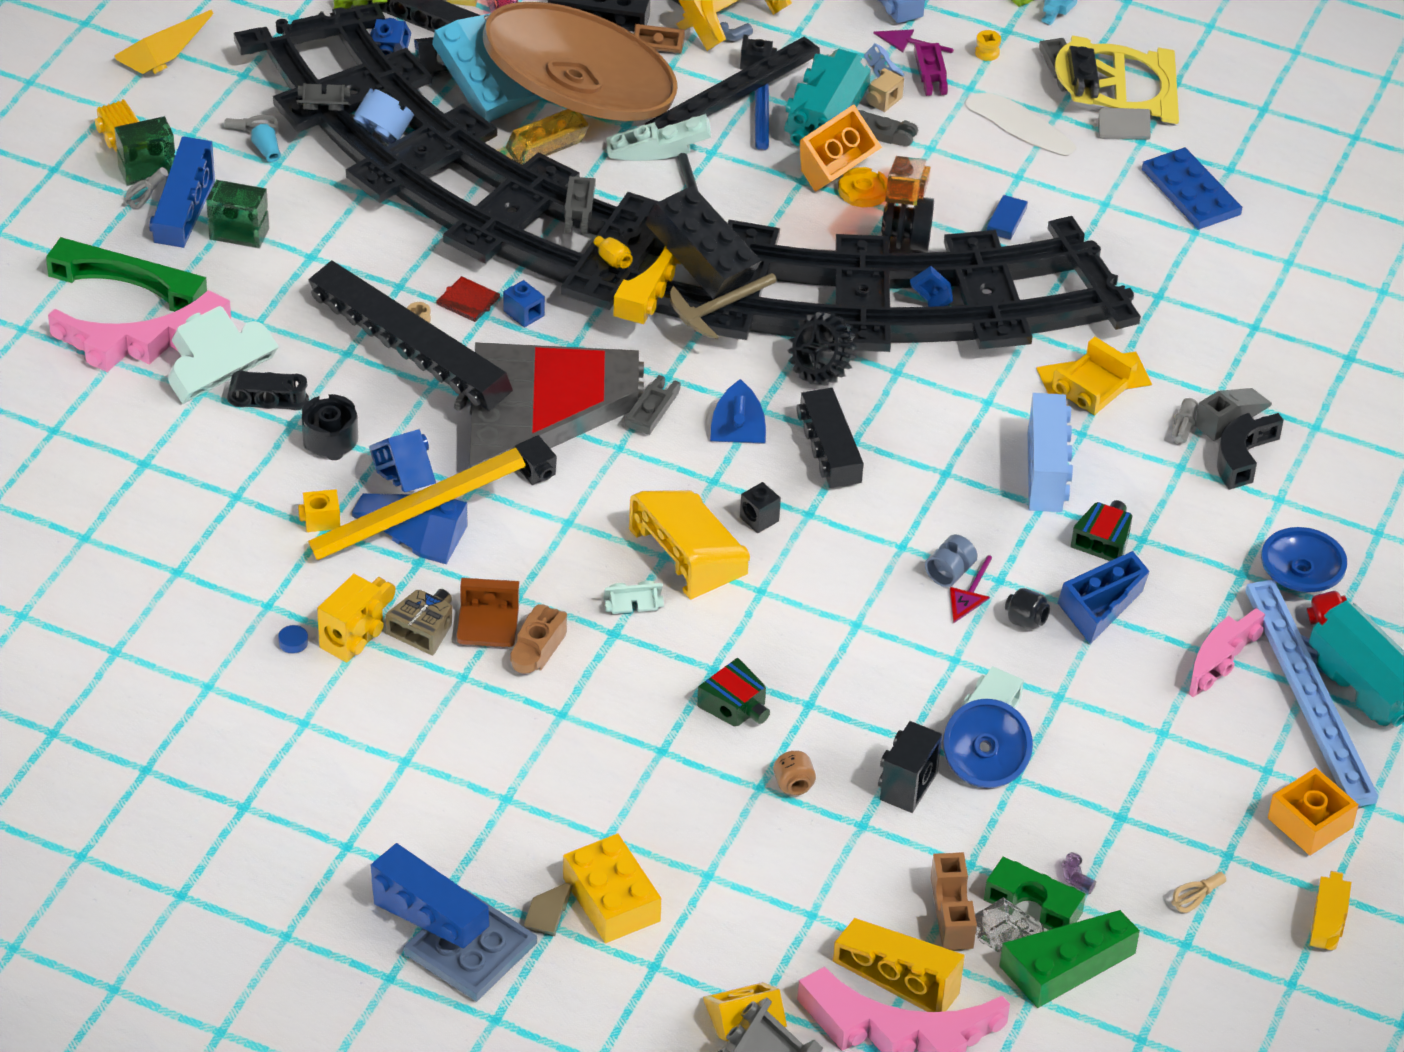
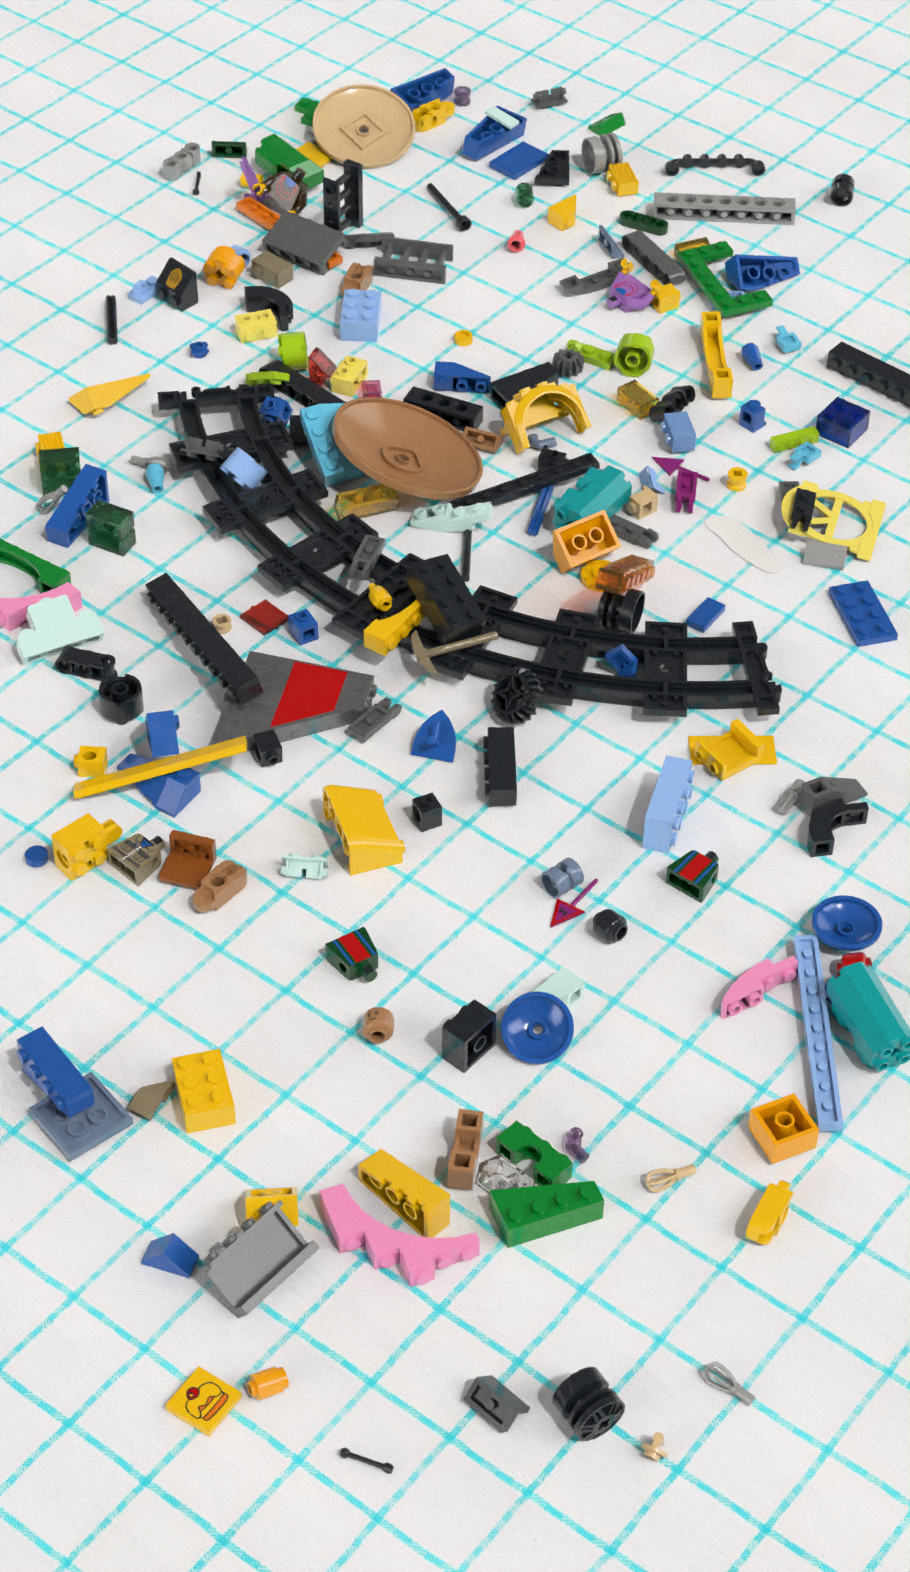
camera: 15 degrees right, 0 degrees up
(1103, 594) = (674, 924): blue wedge -> none

